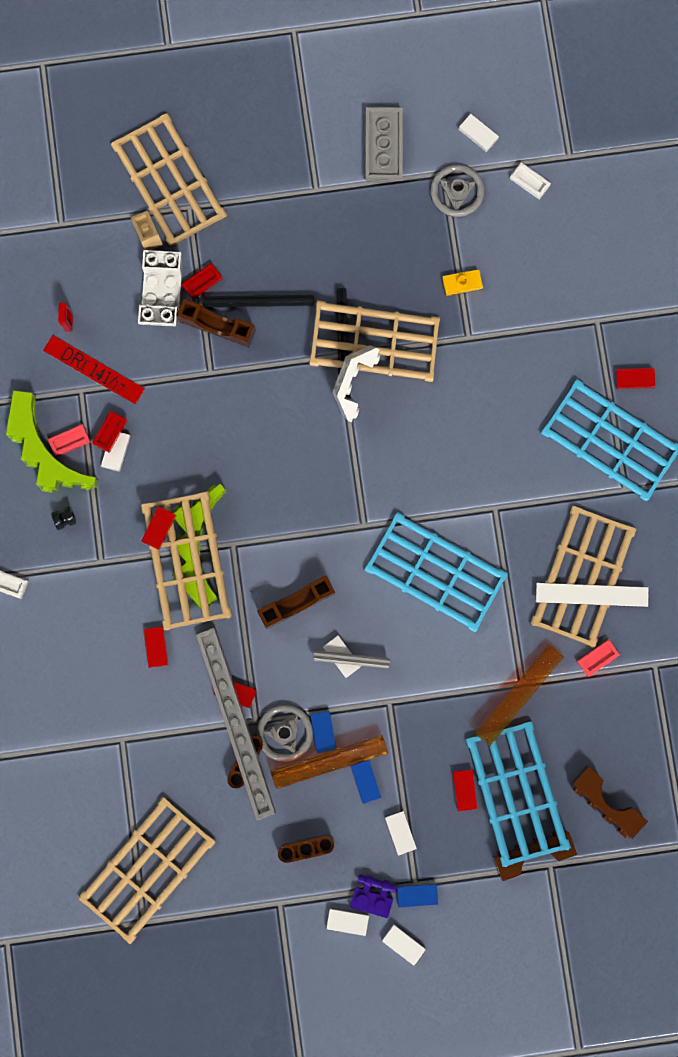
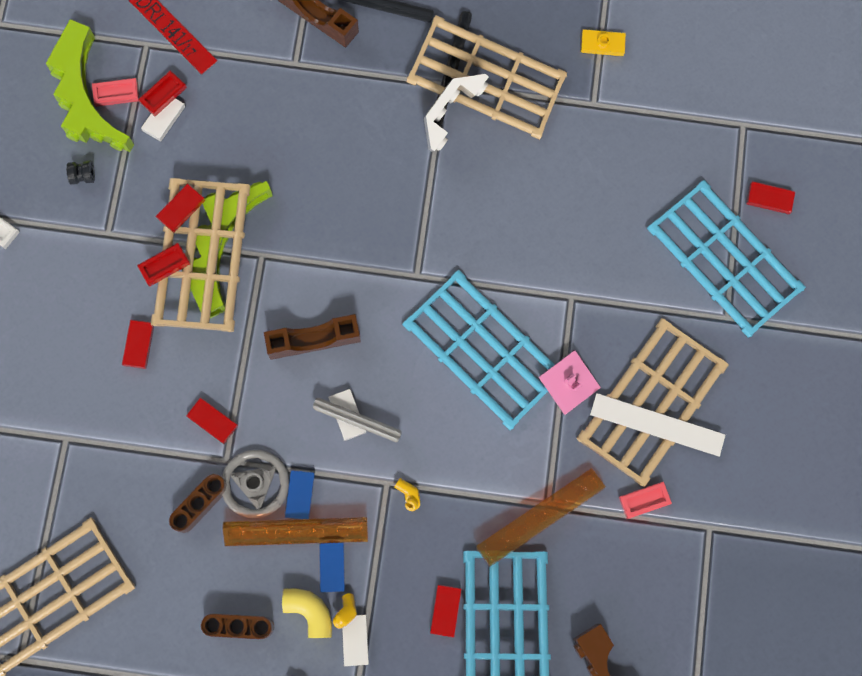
camera: 10 degrees right, 5 degrees down
(159, 578) = (163, 264): none -> red tile
(236, 724) = (199, 458): light grey plate -> none
(361, 819) = (312, 608): none -> light yellow cylinder
(389, 813) = (347, 613): none -> yellow arm
(411, 706) = (411, 494): none -> yellow arm
(512, 580) = (569, 382): none -> bright pink piece

